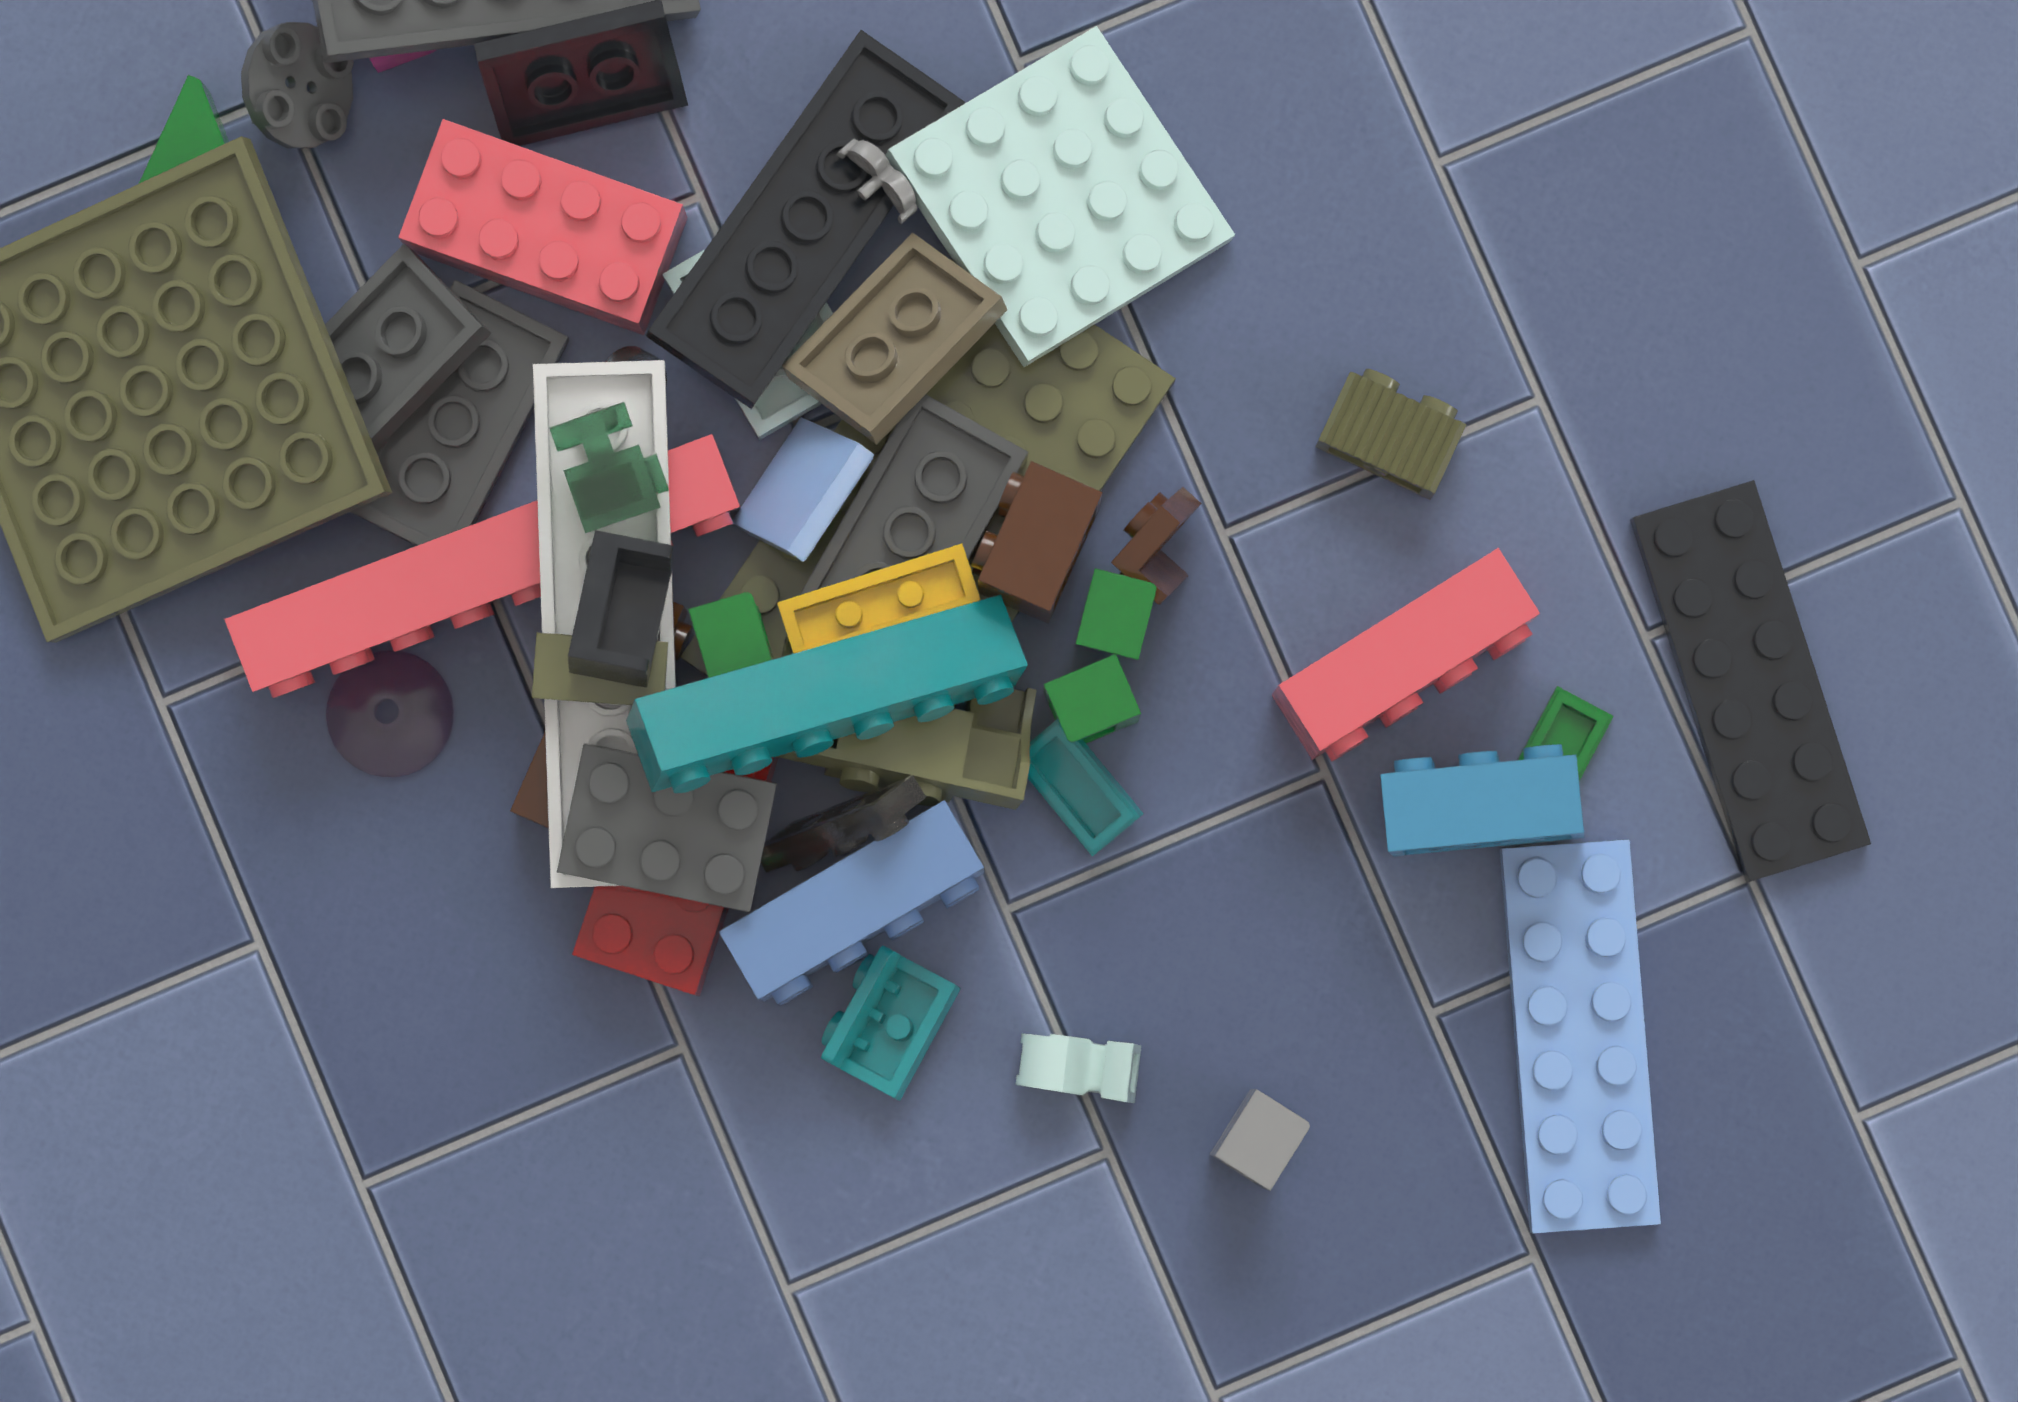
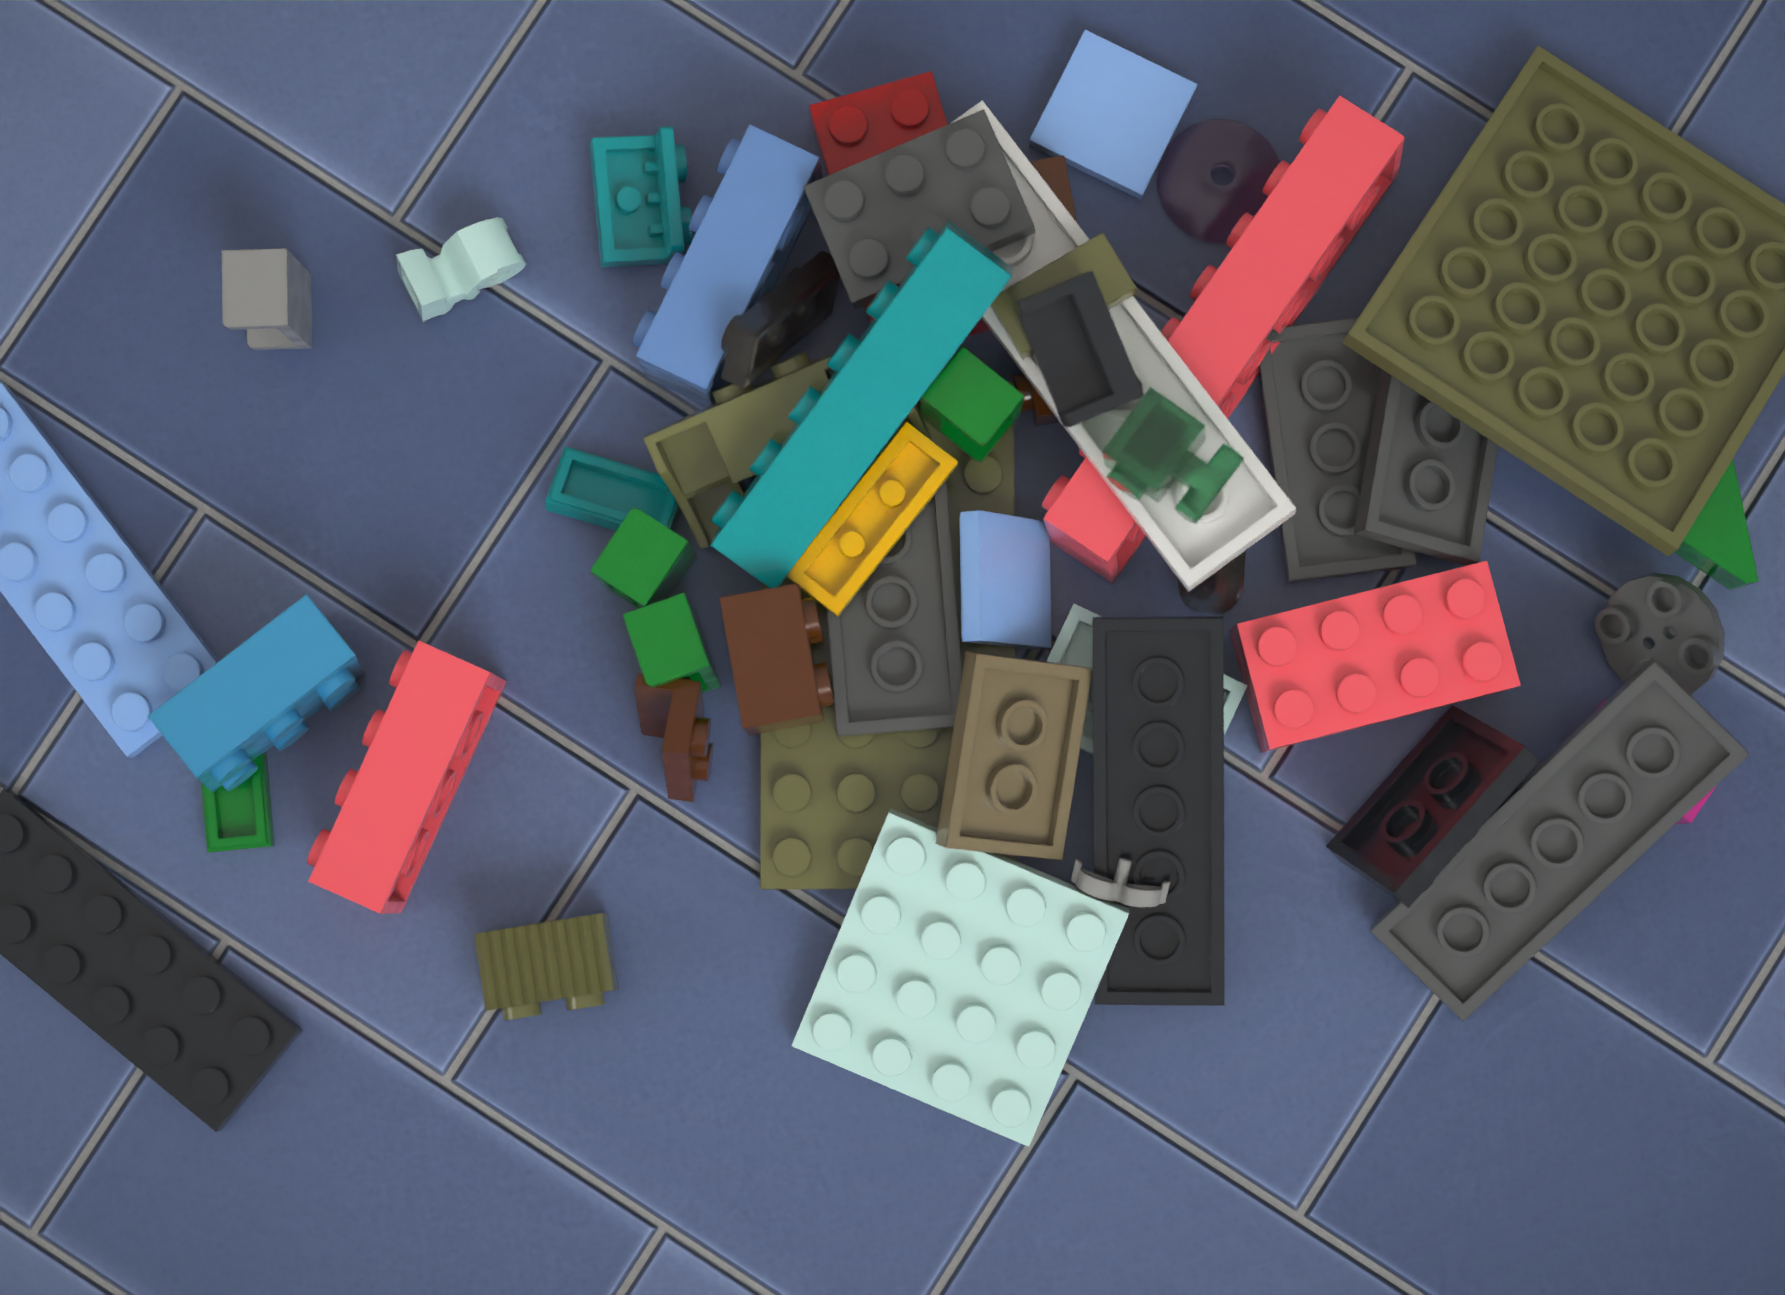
camera: 150 degrees right, 0 degrees up
(440, 828) = (1112, 114): none -> light blue tile

